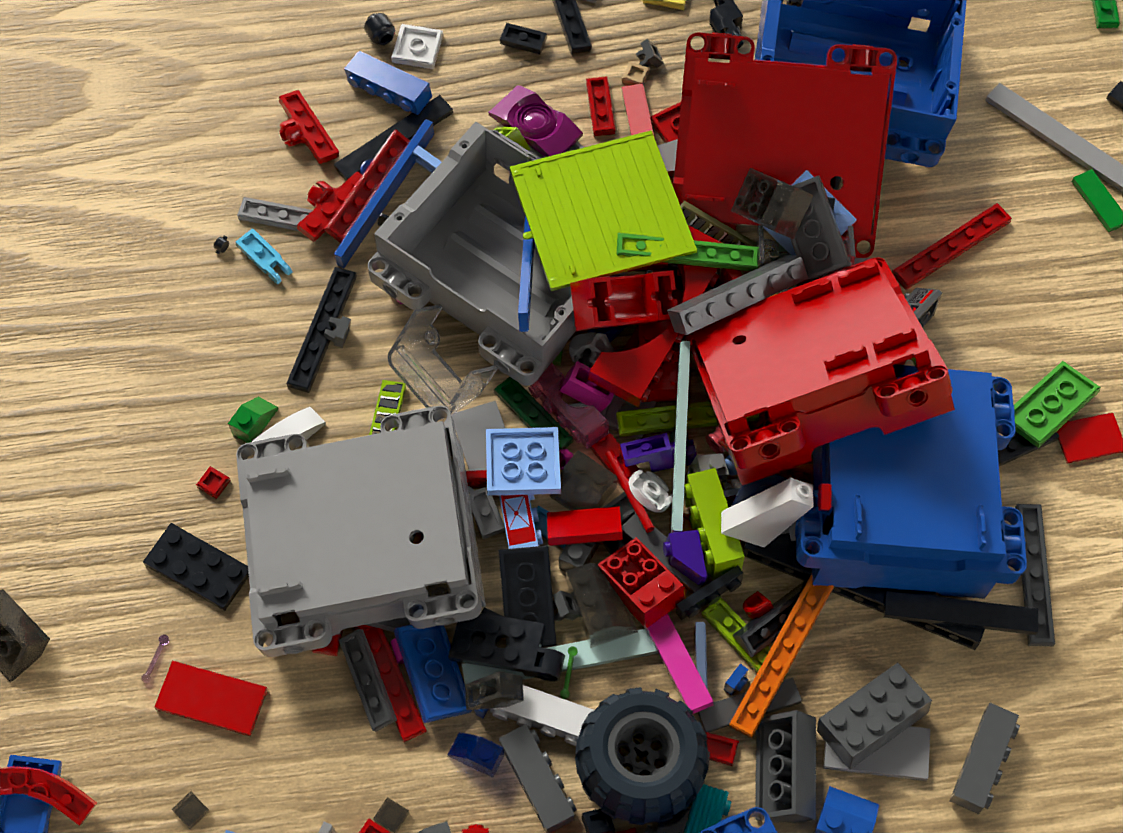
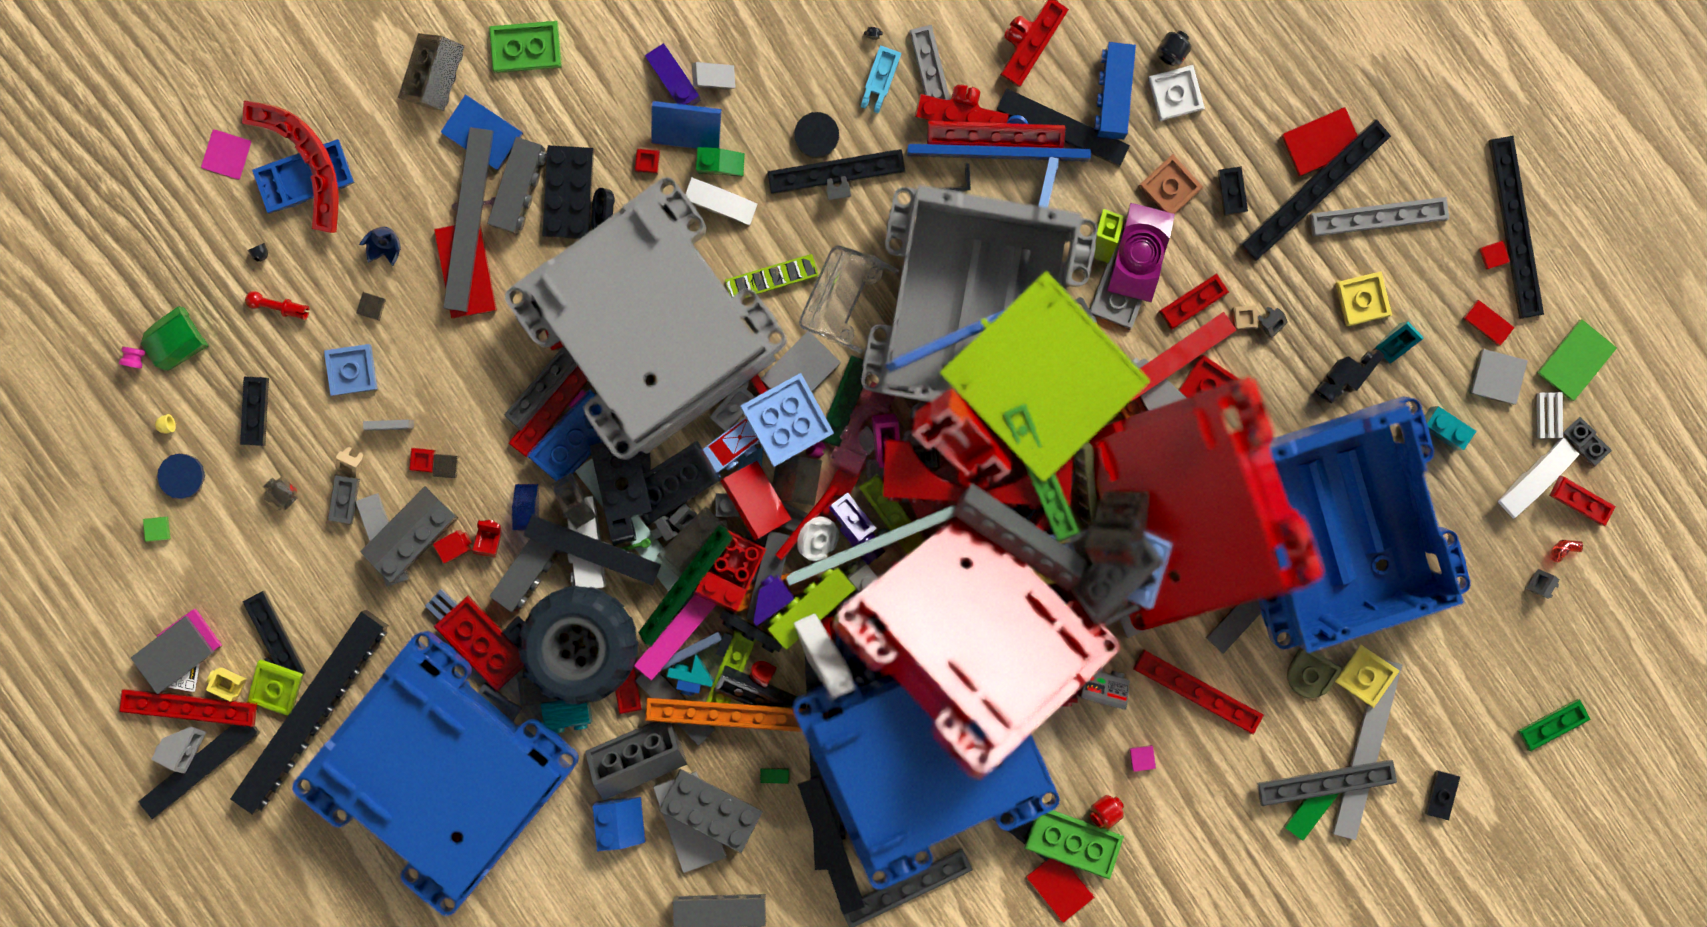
camera: 65 degrees right, 25 degrees up
(41, 540) = (525, 46): none -> bright green tile
(92, 618) = (474, 115): none -> blue tile
(145, 762) = (381, 242): none -> dark blue piece
(154, 422) = (672, 76): none -> dark purple slope
(162, 607) = (517, 185): none -> dark grey brick
(166, 668) = (468, 219): none -> dark grey tile
(173, 384) = (713, 75): none -> tile
(201, 428) = (685, 125): none -> blue tile
(233, 543) = (602, 206): none -> black plate
(279, 329) = (816, 134): none -> black tile
(486, 806) = (487, 538): none -> red bracket
(491, 81) = (1170, 185): none -> nougat tile
(552, 700) = (592, 550): none -> black tile
(568, 627) = (664, 529): none -> dark grey tile
(633, 624) = (685, 585): none -> dark green tile
(713, 628) = (724, 644): none -> black tile
(726, 665) = (698, 674): none -> teal slope
(824, 497) = (848, 702): red tile -> none
(866, 644) = (774, 775): none -> green piece
(902, 190) = (1234, 625): none -> dark grey tile
(975, 153) = (1311, 674): none -> olive tile
(994, 315) = (1142, 758): none -> dark pink tile
(998, 111) = (1367, 676): none -> light yellow tile
(1033, 363) = (1107, 811): none -> red head
(1082, 179) = (1326, 782): none -> dark grey tile

